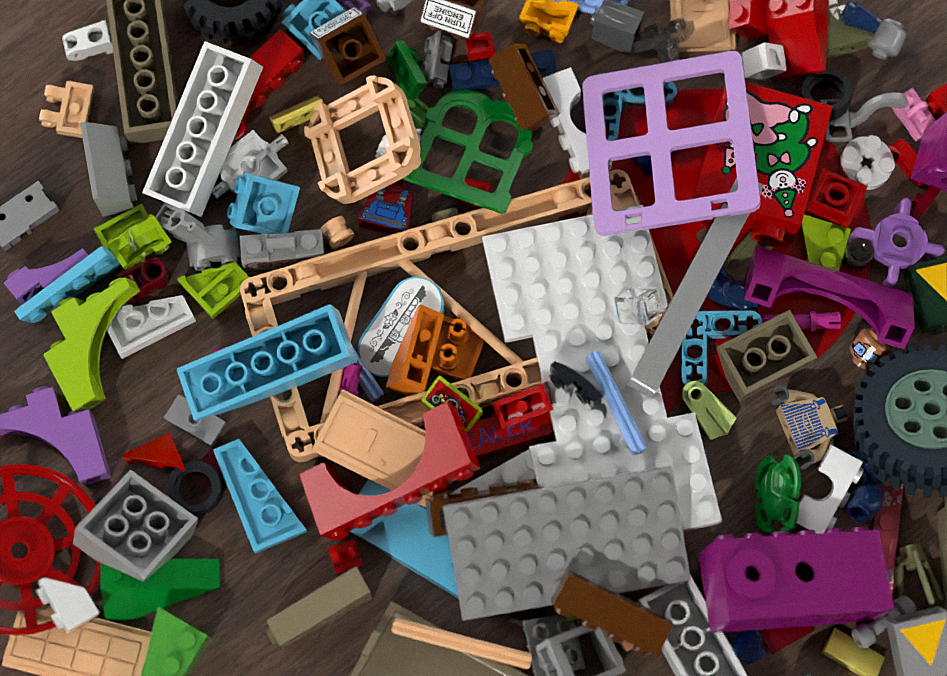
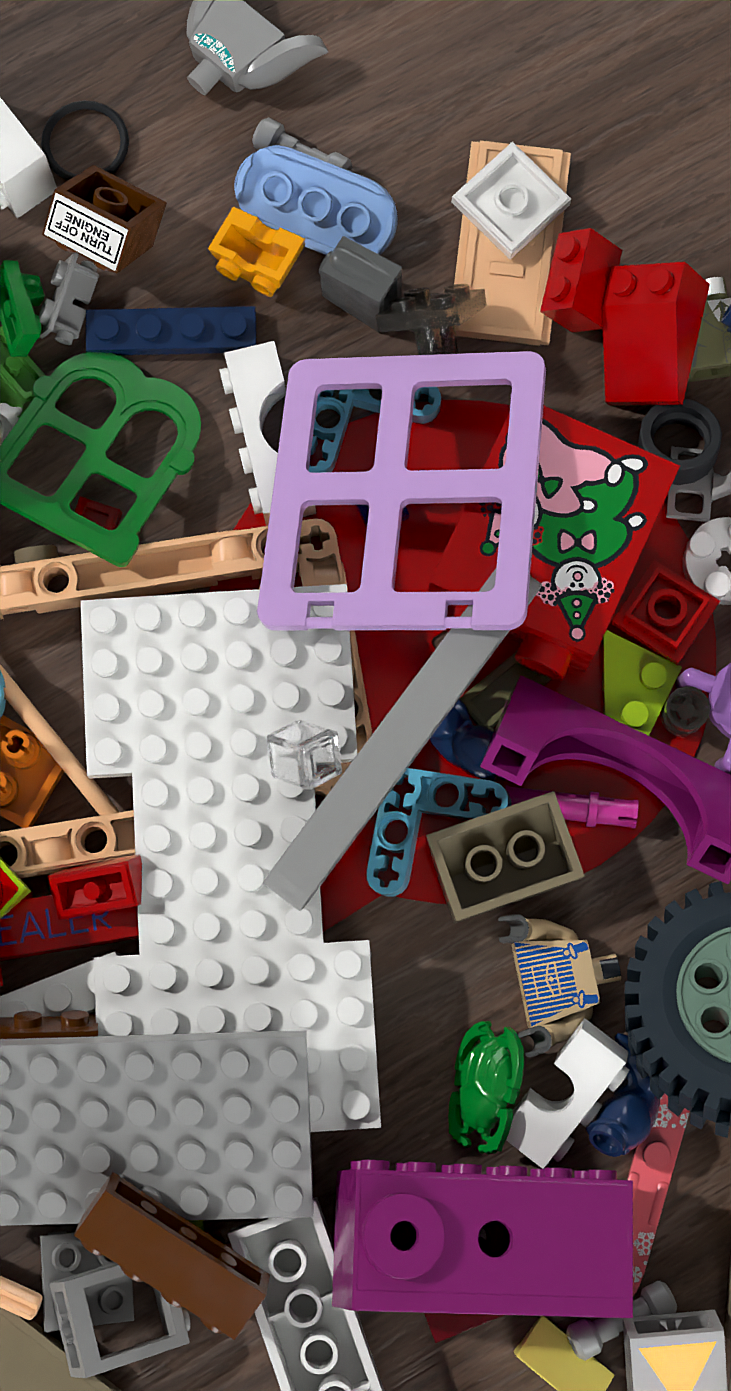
camera: 10 degrees right, 5 degrees up
(480, 46) = (138, 286): red tile -> none
(523, 87) = (191, 363): reddish brown brick -> none
(568, 379) = (167, 859): black slope -> none
(616, 403) = (241, 909): light blue axle -> none
(709, 410) = (400, 931): yellowish green piece -> none
(748, 647) = (396, 1332): clear blue piece -> none
(764, 61) = (588, 373): white brick -> none
(867, 349) = (668, 870): nougat head -> none
(915, 559) = (689, 1223): olive plant -> none

